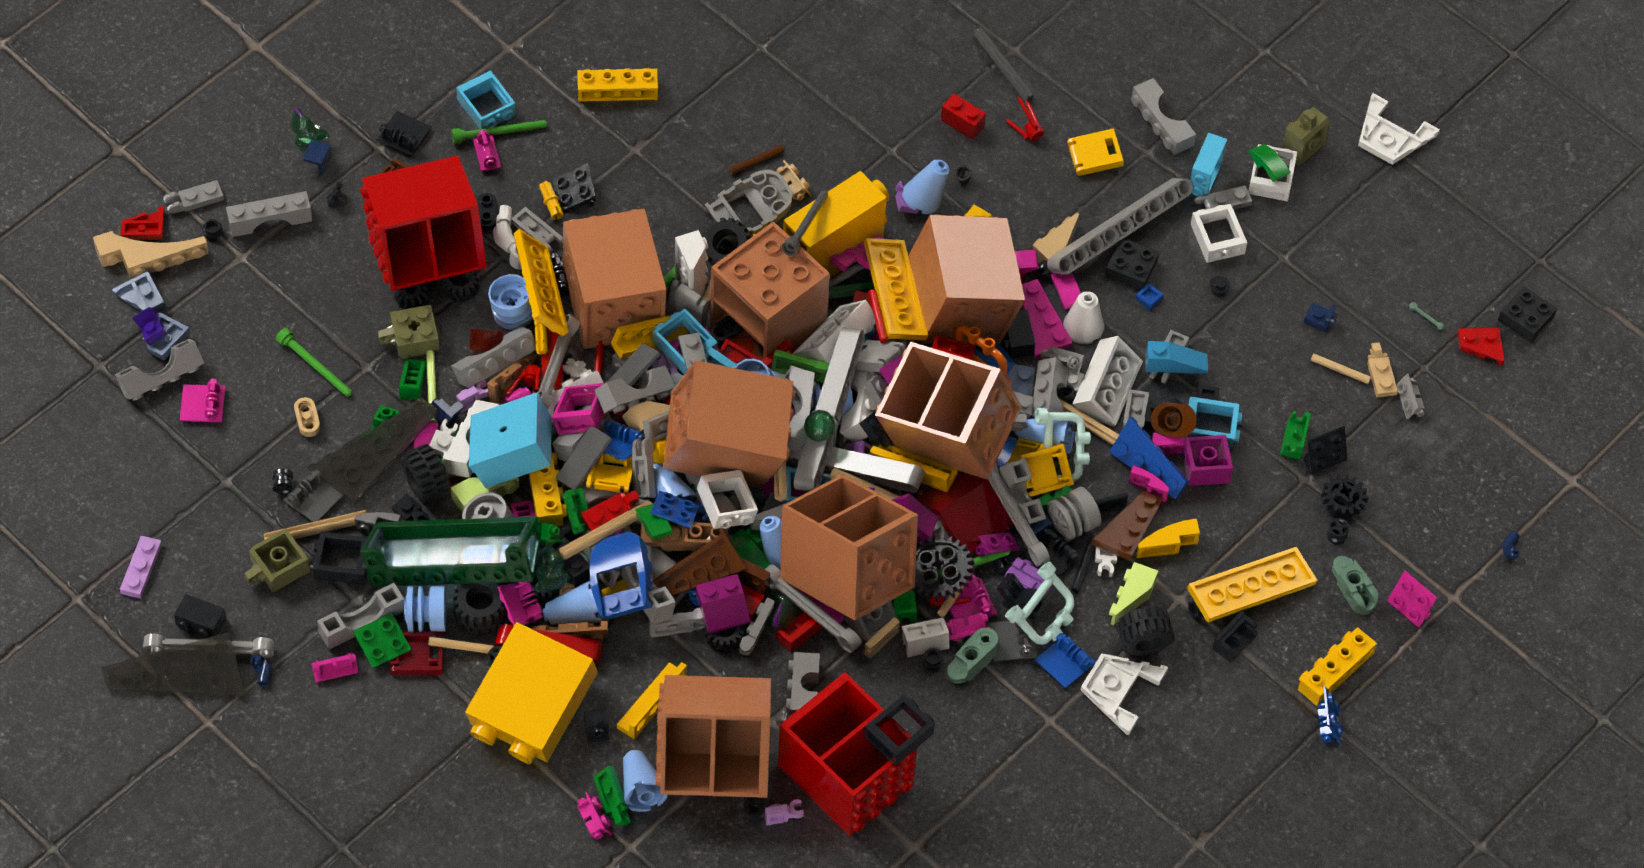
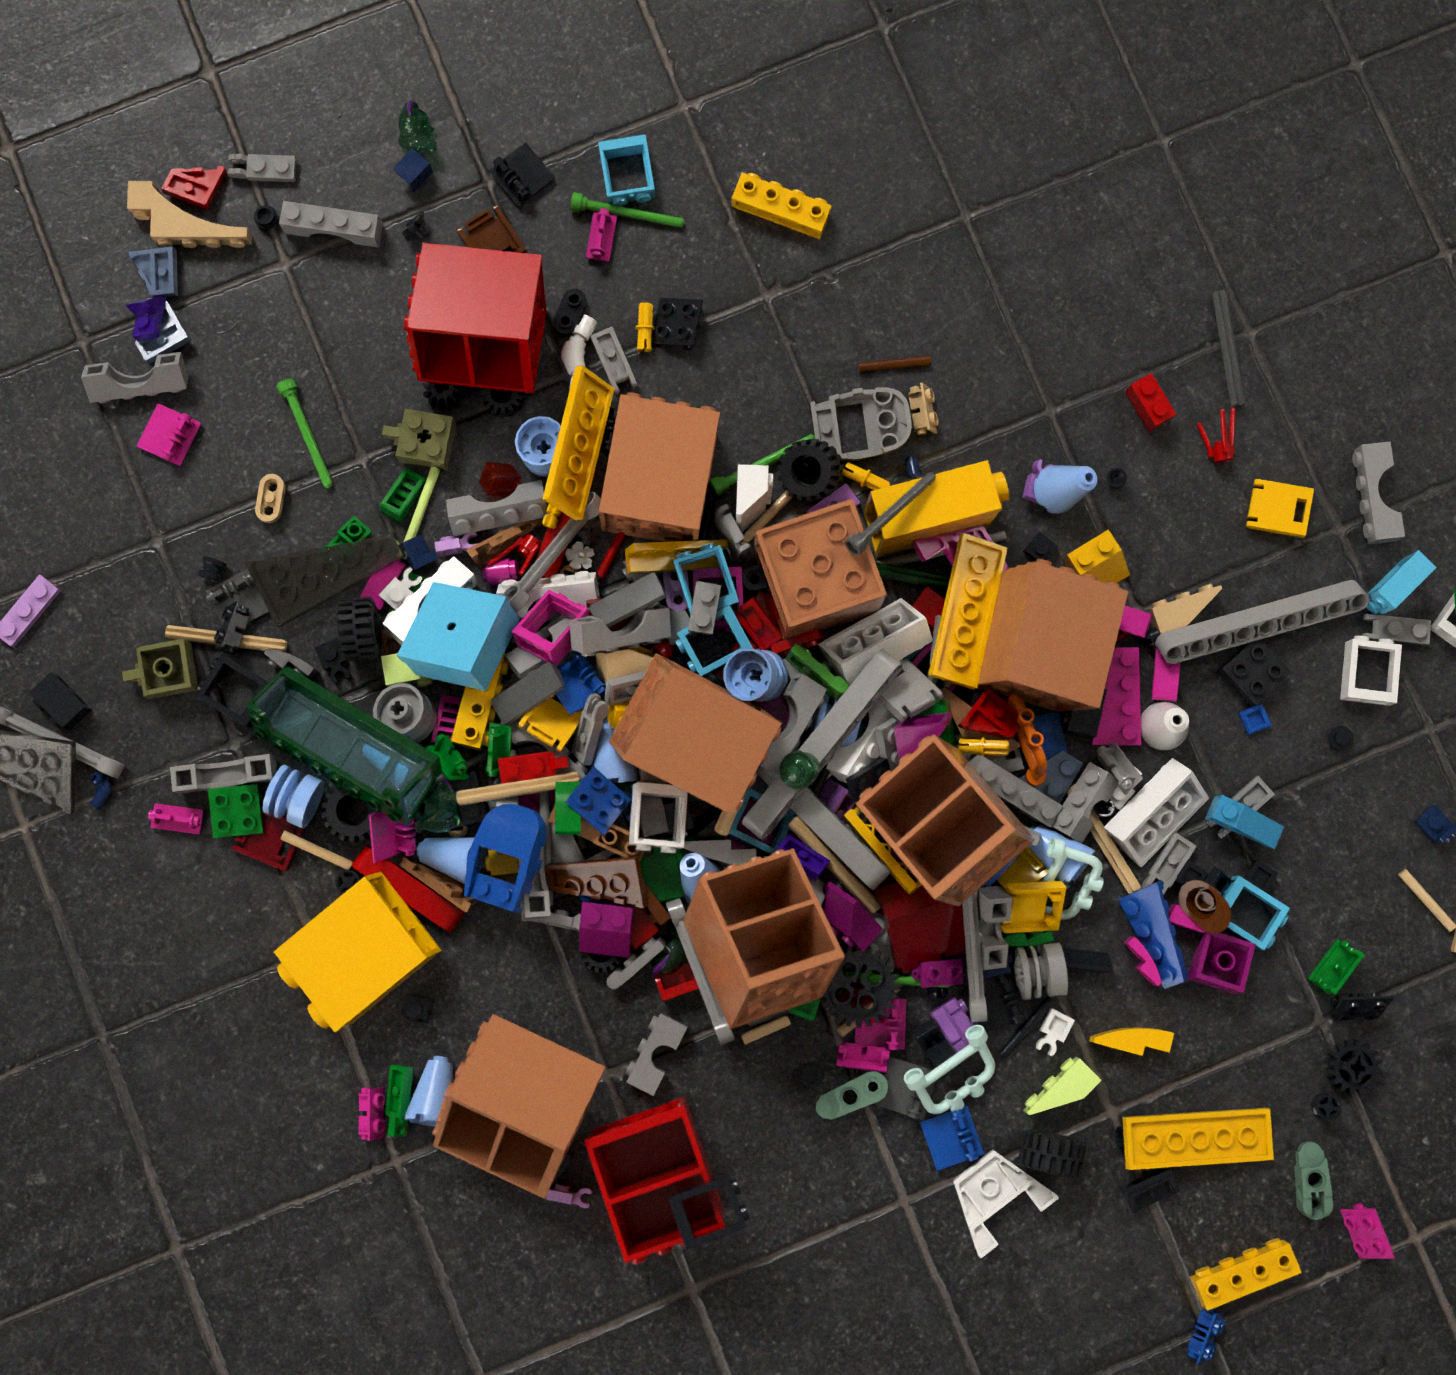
camera: 25 degrees right, 25 degrees up
(318, 511) = (227, 636): none -> black hinge
(647, 705) = (490, 998): yellow fence -> none
(878, 316) = (931, 642): red bar -> none
(924, 636) = (813, 1048): white hinge -> none
(1129, 527) = (1092, 1010): reddish brown wing -> none

